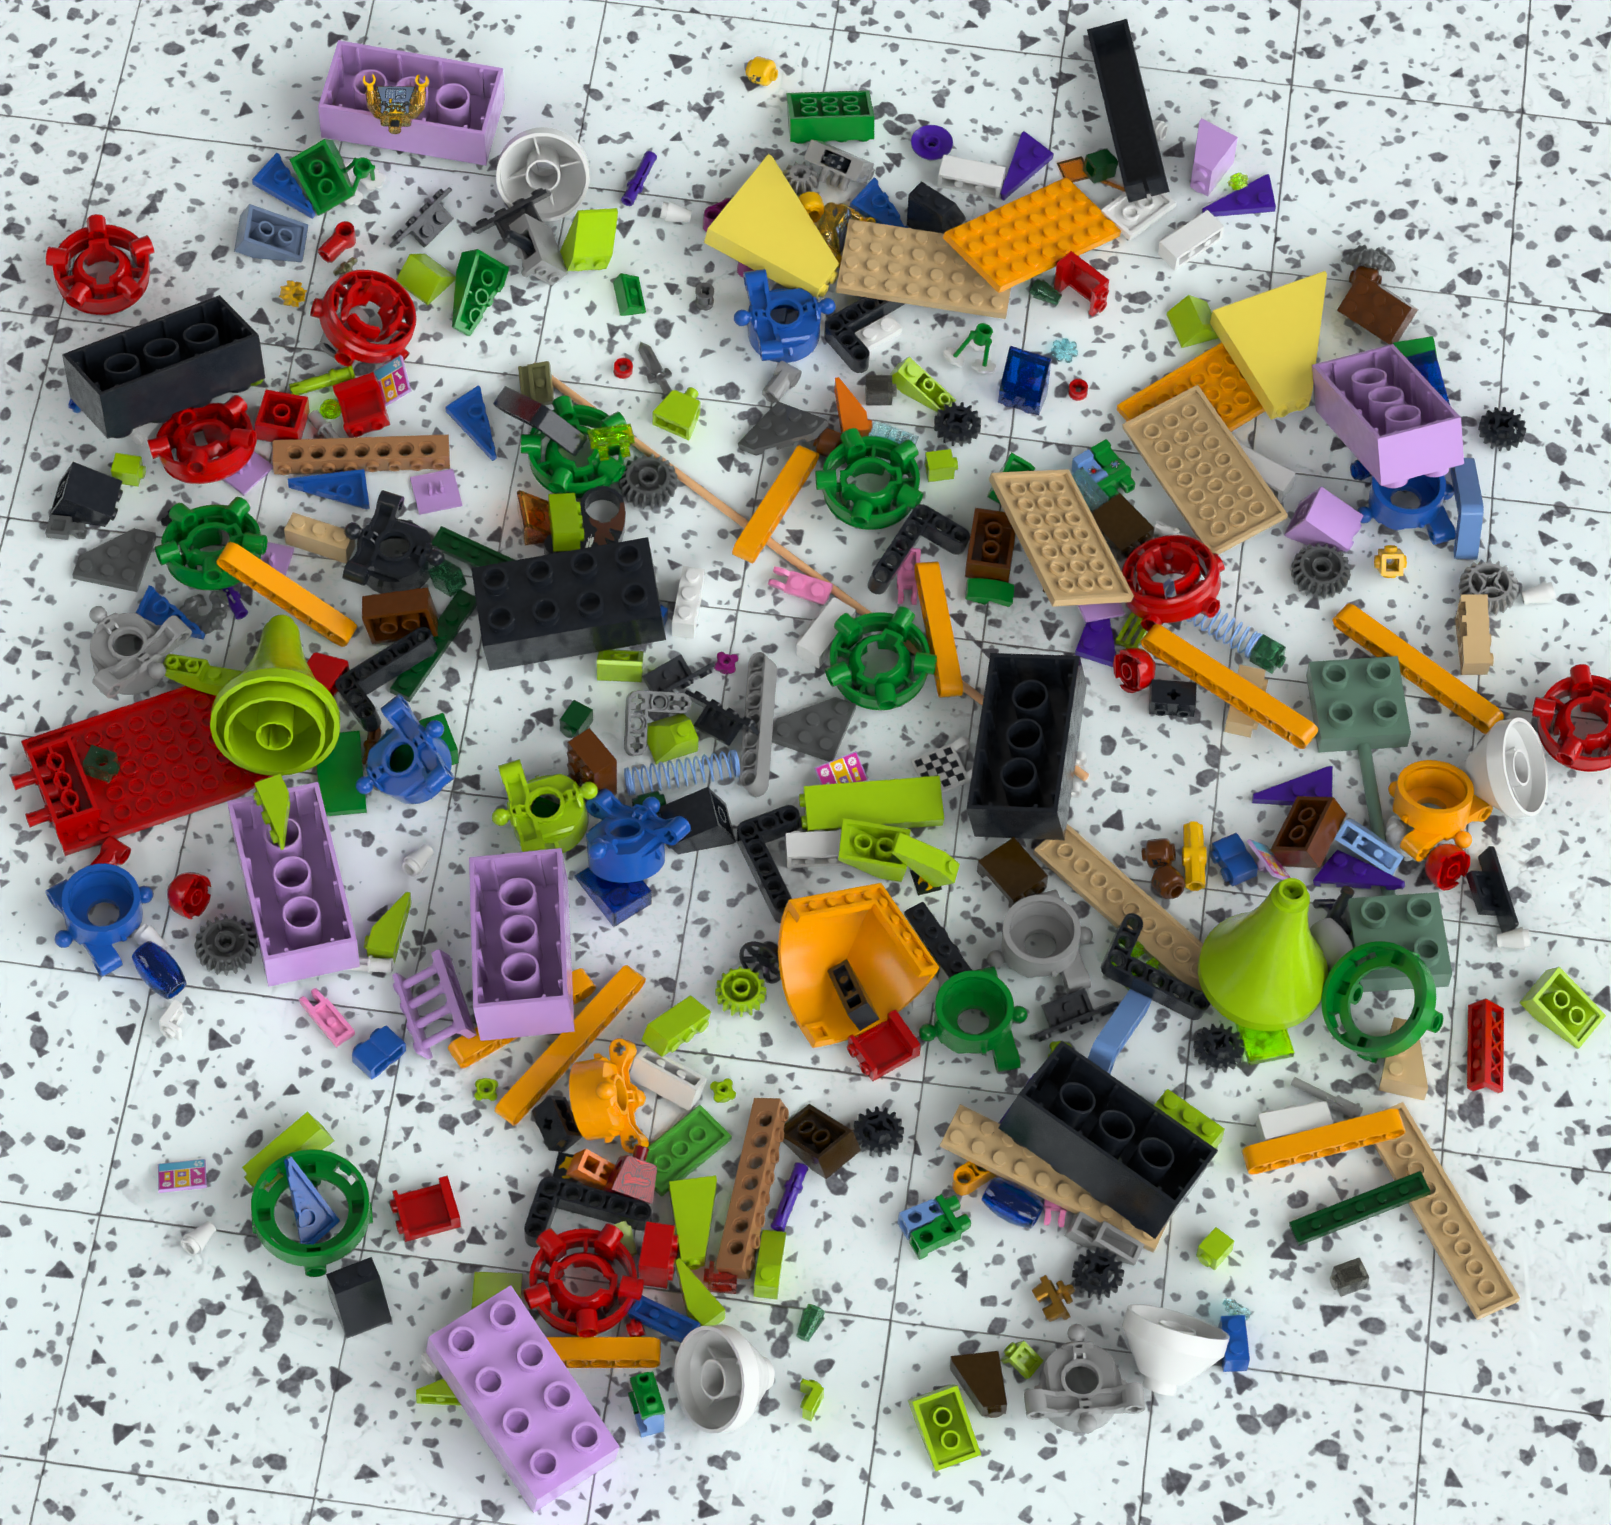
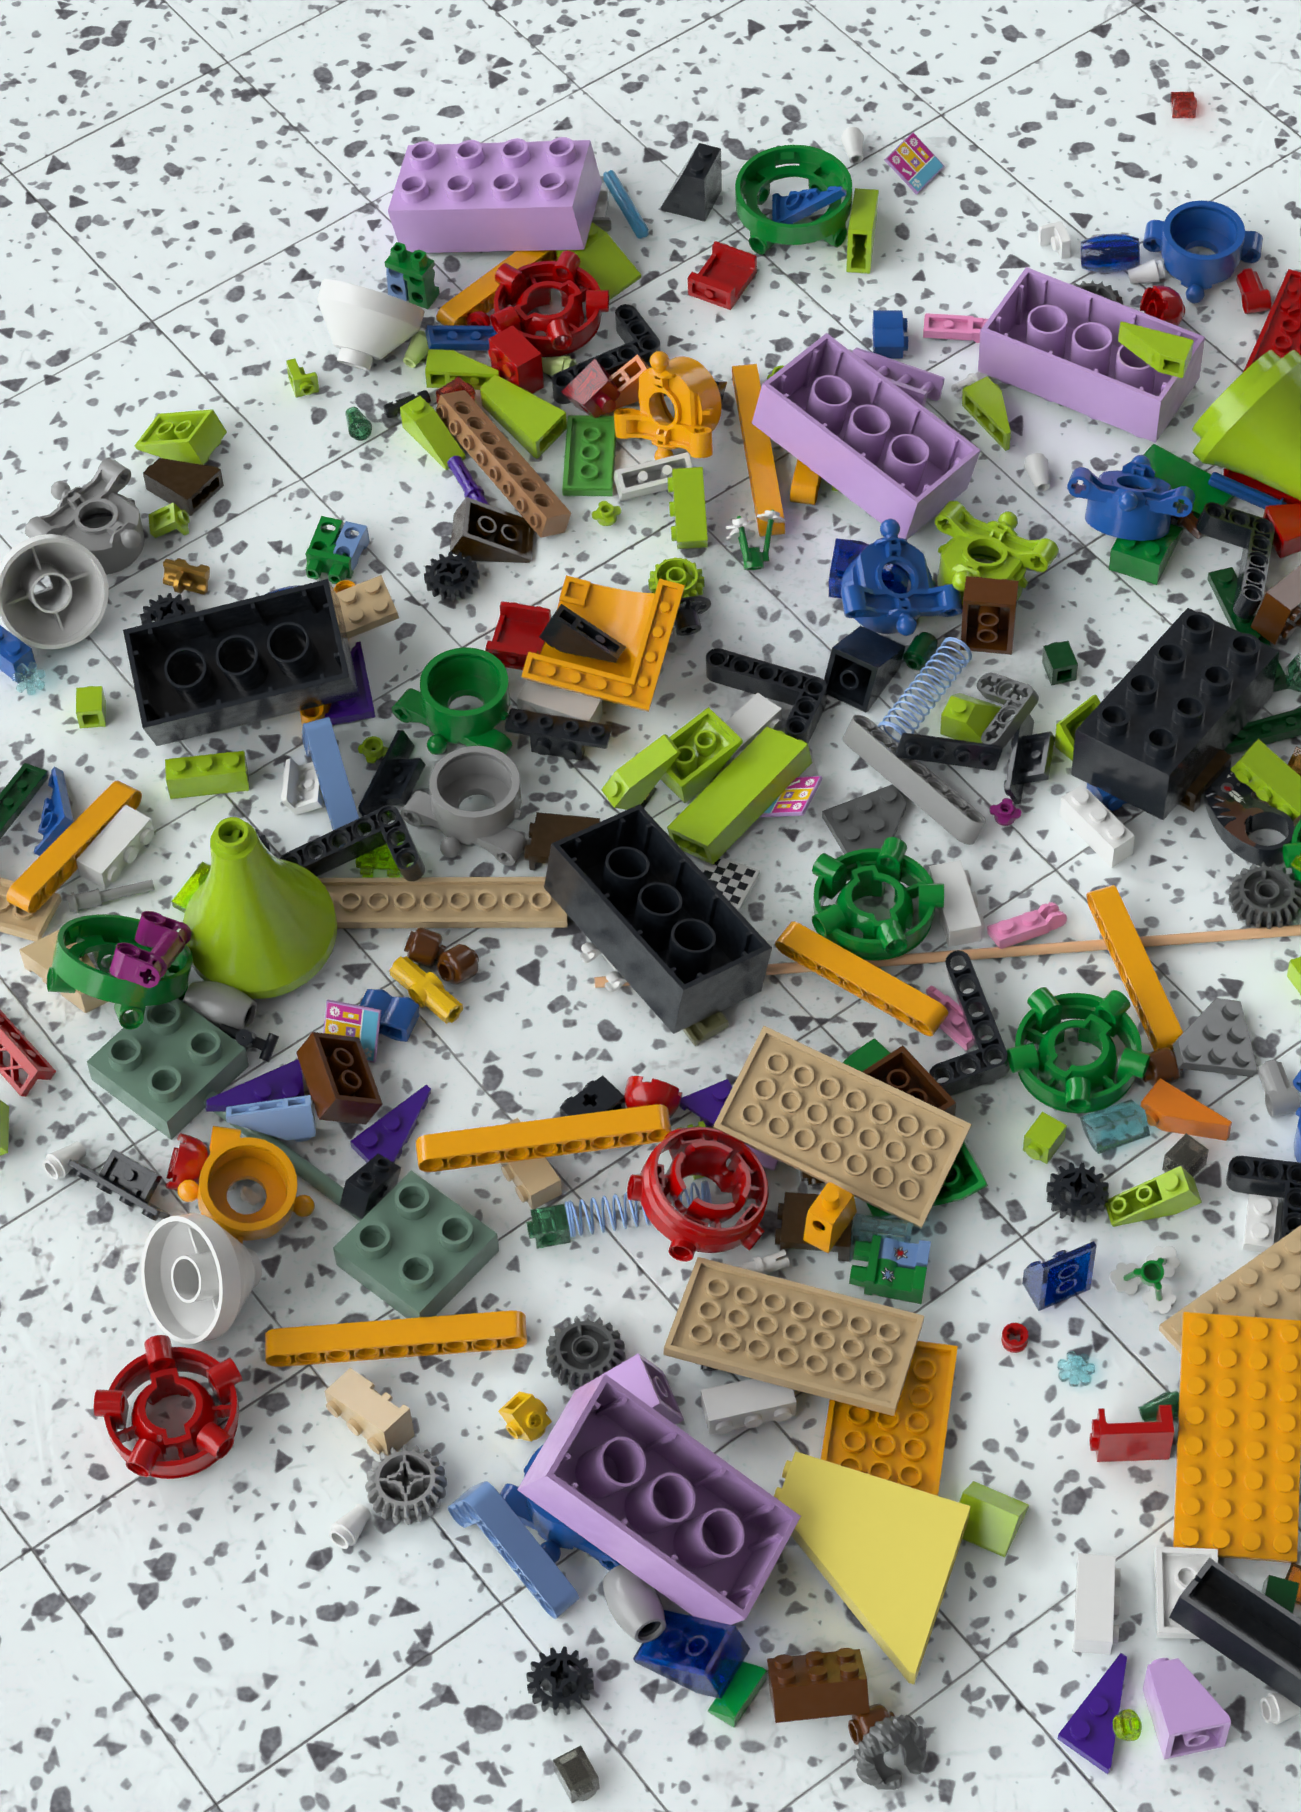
camera: 140 degrees right, 5 degrees down
(413, 1344) = (625, 204): none -> dark azure axle
(668, 965) = (752, 557): none -> plant
(757, 1310) = (392, 409): none -> black axle
(1118, 503) = (834, 1210): none -> light orange torso
(1133, 1059) = (301, 787): none -> white bracket
(1313, 1181) = (56, 812): none -> blue wing
(1352, 754) = (369, 1185): none -> black brick
(1384, 943) = (156, 932): none -> magenta piece
(1537, 382) = (576, 1775): none -> clear smoke brick

